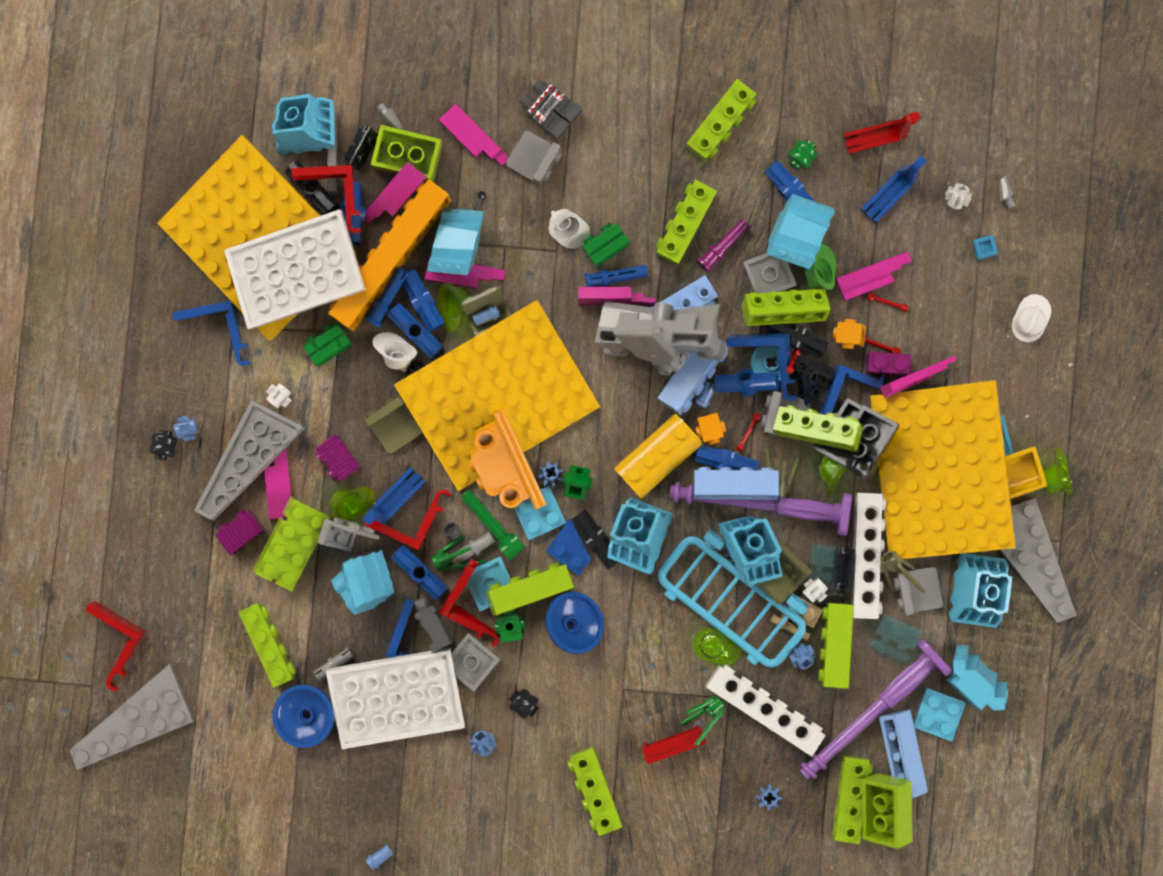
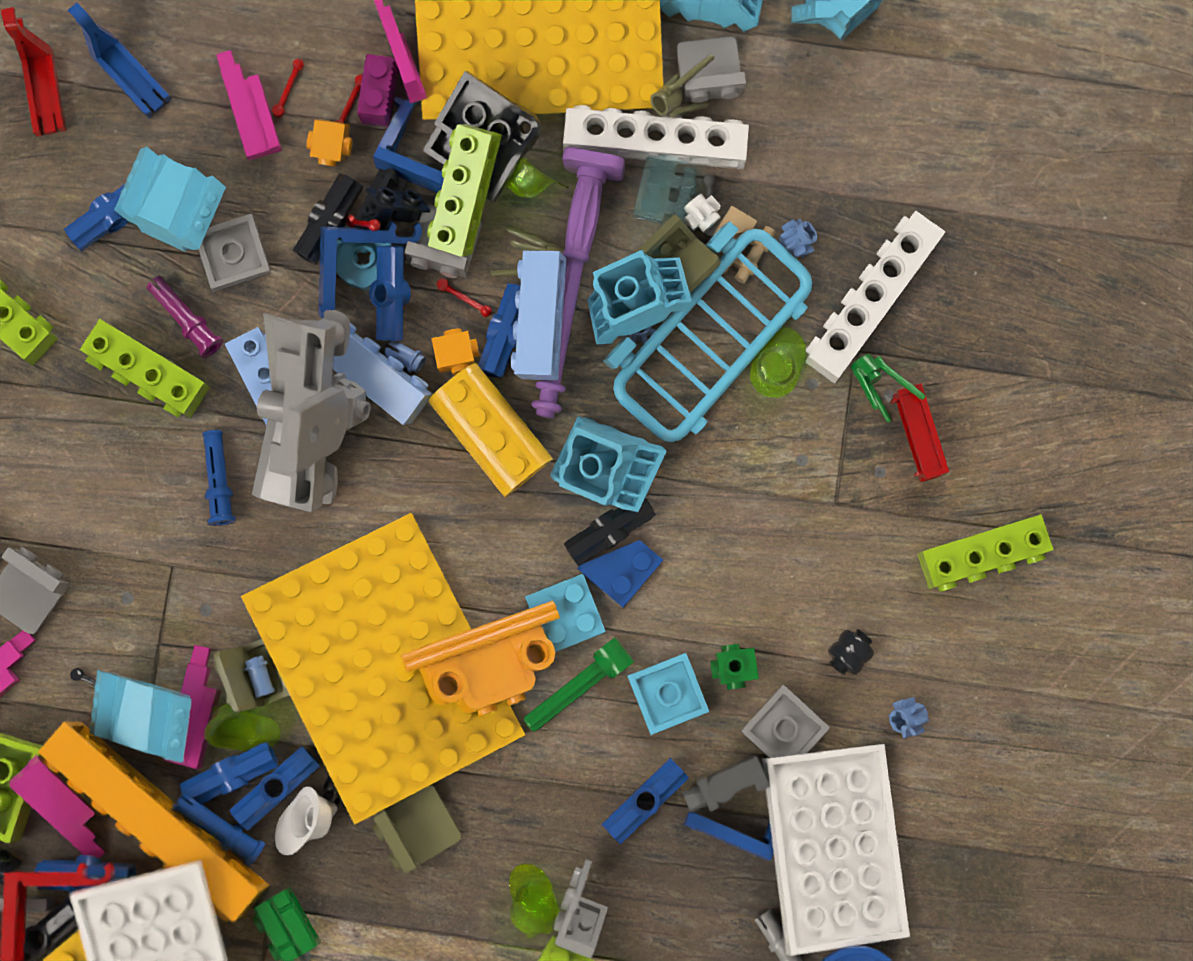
camera: 90 degrees left, 5 degrees down
(337, 458) = (462, 920): magenta brick -> none
(364, 582) = (656, 887): medium azure slope -> none
(379, 857) = (1075, 886): medium blue pin -> none
(394, 498) = (529, 833): blue hinge -> none
(423, 530) = (591, 824): red hinge -> none
(443, 560) = (627, 763): green plant -> none
(451, 530) = (584, 748): dark grey hinge -> none
(460, 615) = (714, 741): red hinge -> none
(476, 546) = (612, 715): light grey pin -> none
(529, 589) = (680, 634): lime brick -> none
(552, 479) = (518, 592): medium blue gear -> none
(568, 228) = (138, 543): white piece -> none
(577, 482) = (522, 552): green brick -> none
(583, 617) = (729, 555): blue dish -> none
(598, 295) = (243, 506): dark pink piece -> none
(605, 245) = (168, 490): green brick -> none
(773, 801) = (1008, 294): medium blue gear -> none
(785, 307) = (282, 229): lime brick -> none
(802, 154) = (59, 193): green piece -> none
(823, 270) = (236, 175): bright green piece -> none
(837, 645) = (784, 188): lime brick -> none
(843, 569) = (672, 169): black hinge -> none
(849, 804) = (1008, 181): lime brick -> none
(887, 810) = (1028, 127): lime brick -> none
(894, 692) = (854, 106): medium lavender piece -> none
(899, 632) = (768, 101): clear light blue plate -> none
(903, 749) = (946, 102): light blue brick -> none
(938, 714) = (889, 53): medium azure plate -> none

